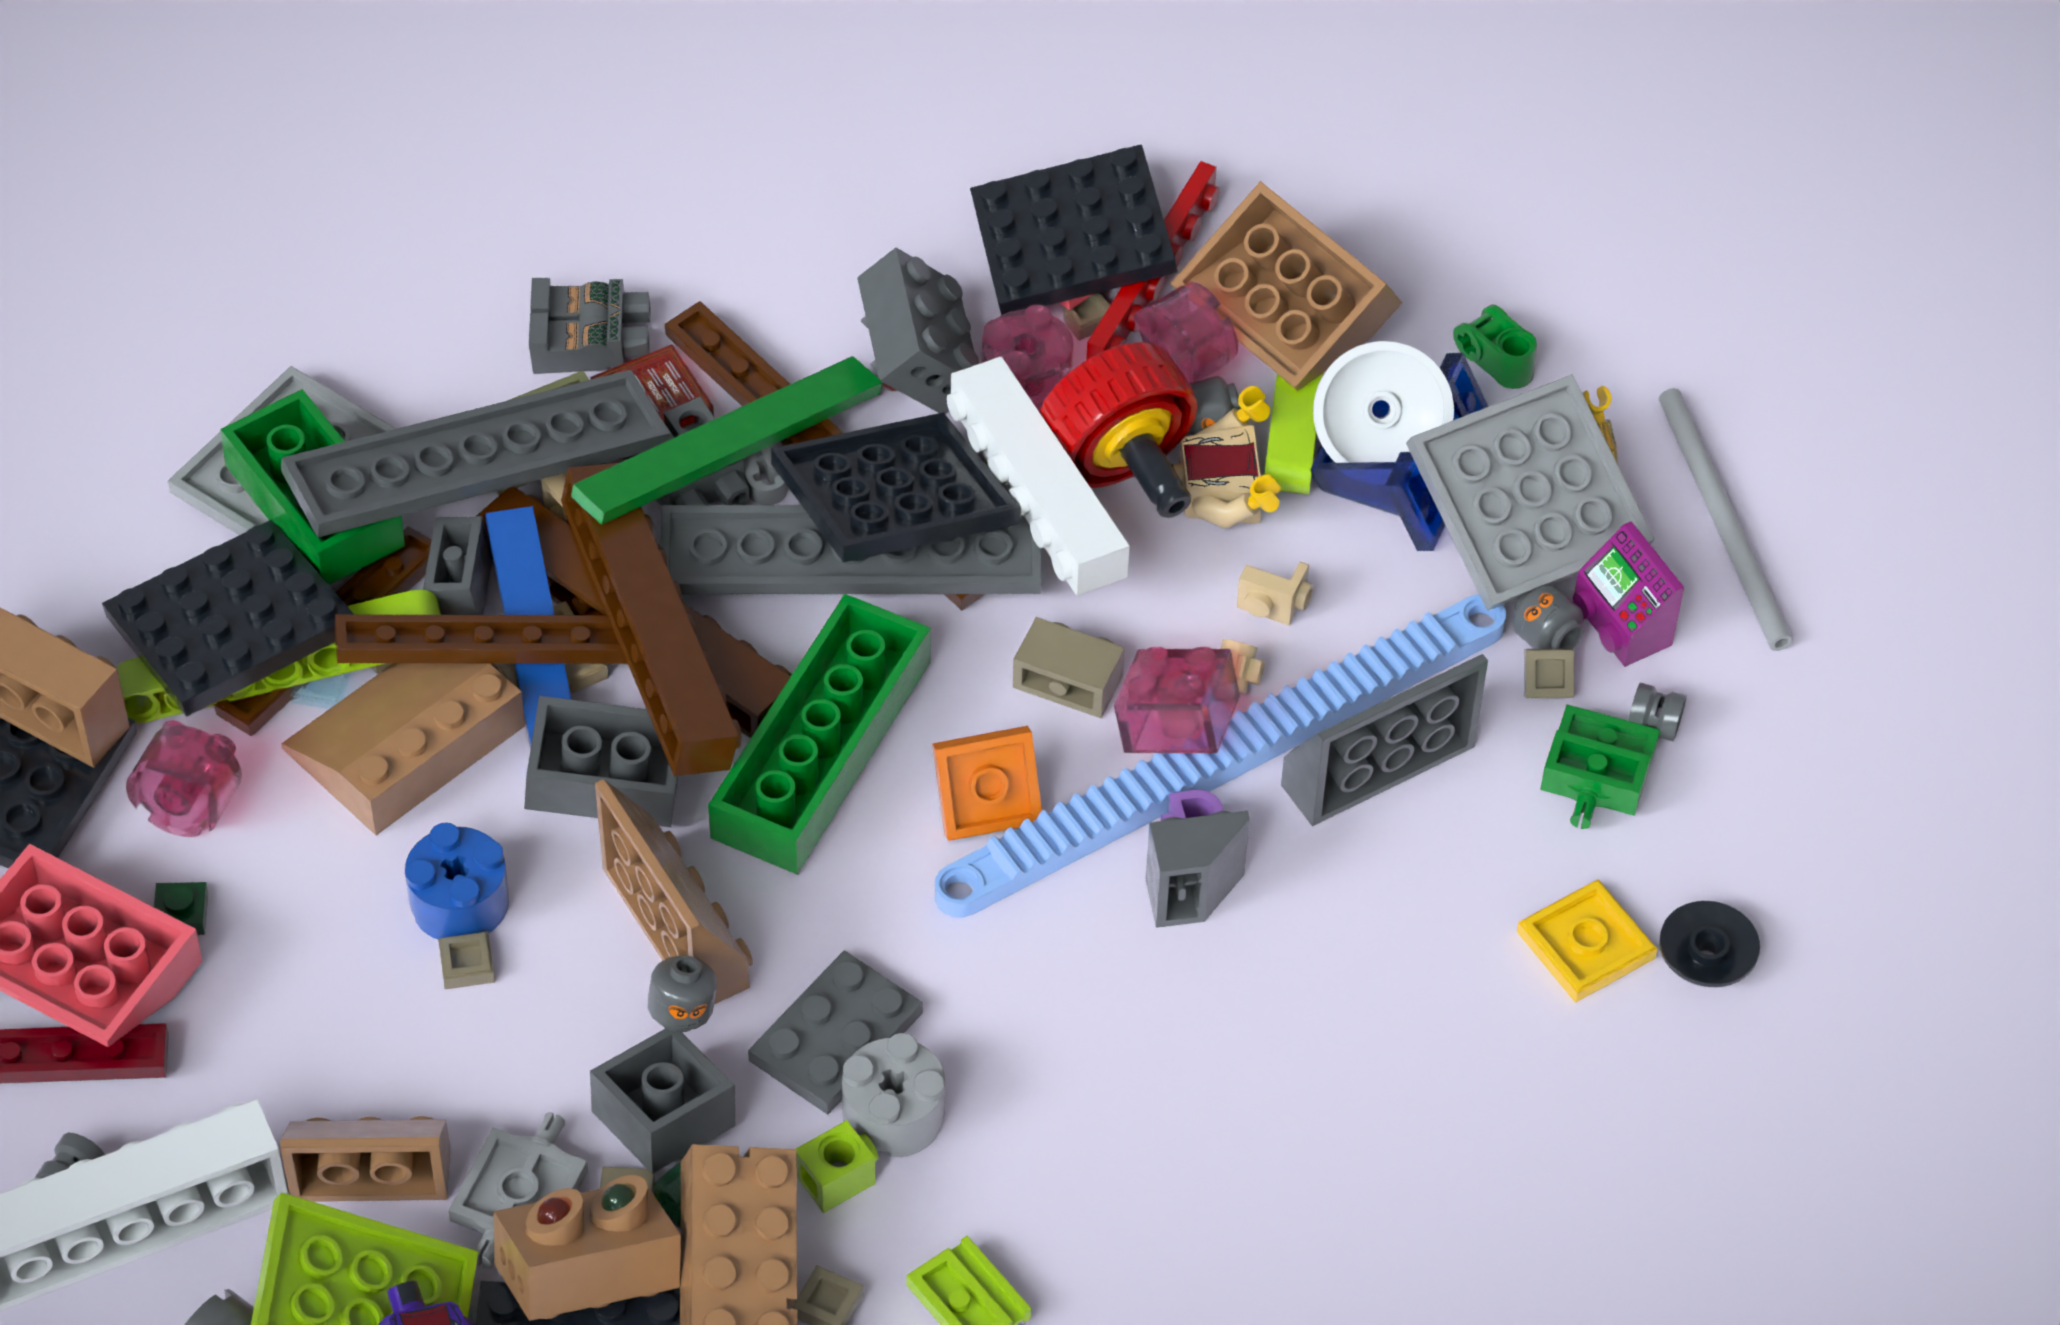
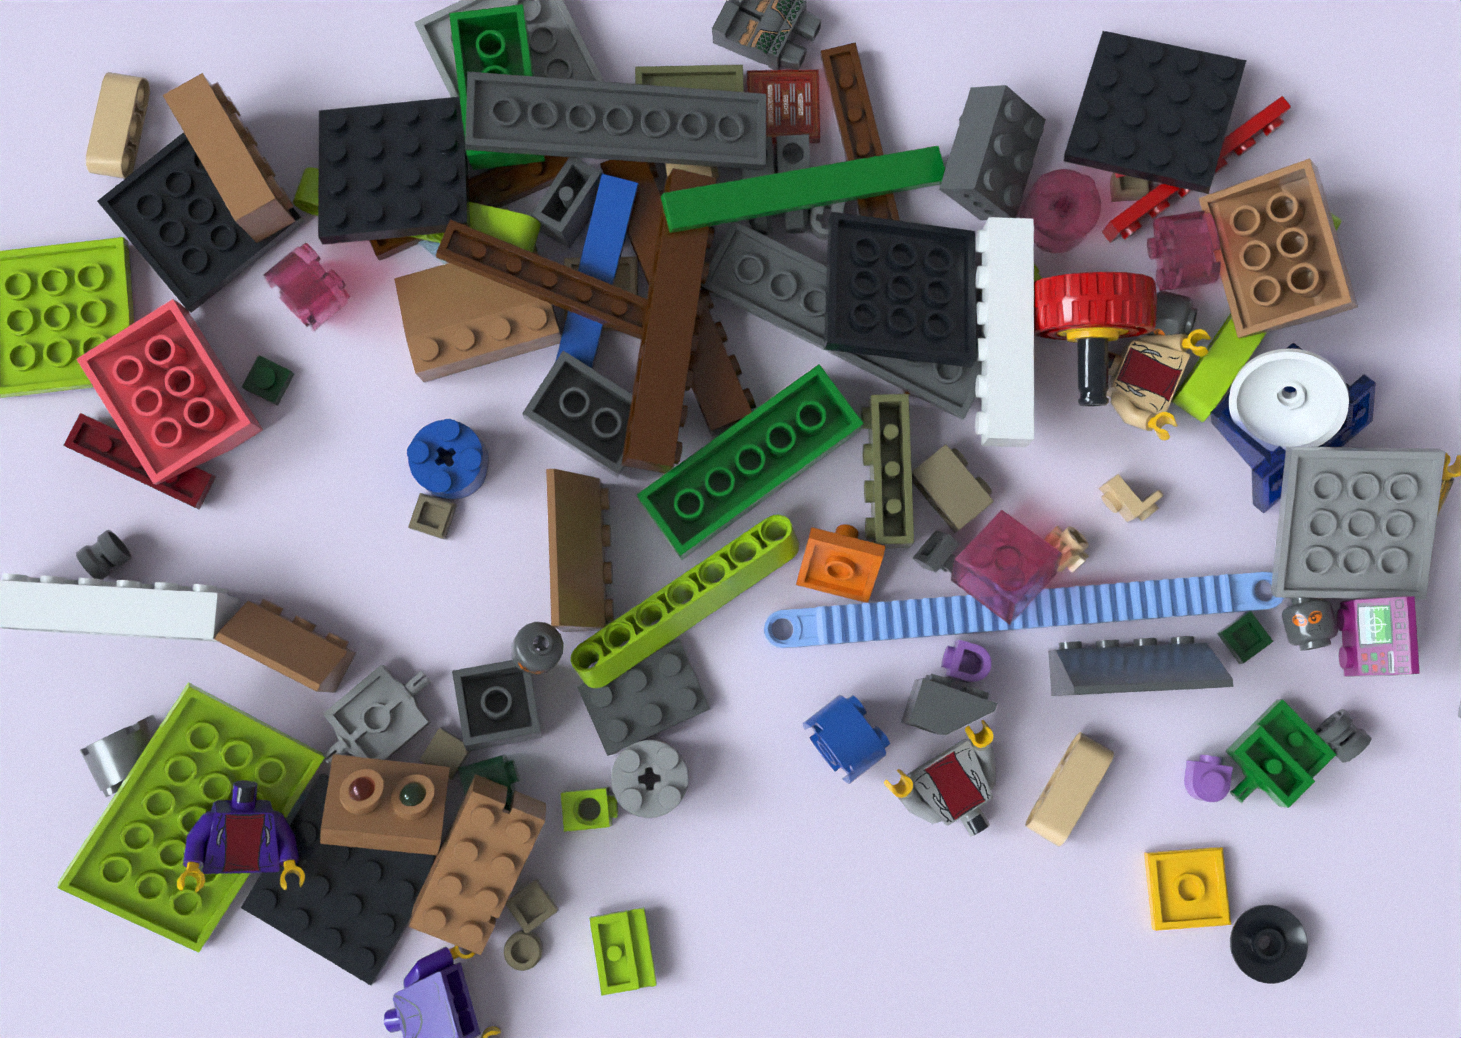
camera: 30 degrees right, 30 degrees up
(827, 900) = (678, 617): none -> lime beam
(987, 667) = (890, 471): none -> olive brick
(1095, 734) = (937, 552): none -> dark grey tile
(1100, 946) = (846, 737): none -> blue brick
(1252, 944) = (952, 783): none -> torso
(1389, 896) = (1069, 789): none -> tan beam
(1500, 347) = (1411, 355): green piece -> none
(1500, 668) = (1245, 637): none -> dark green plate
(1536, 819) = (1207, 778): none -> medium lavender plate
(1549, 673) = (1285, 664): dark tan plate -> none

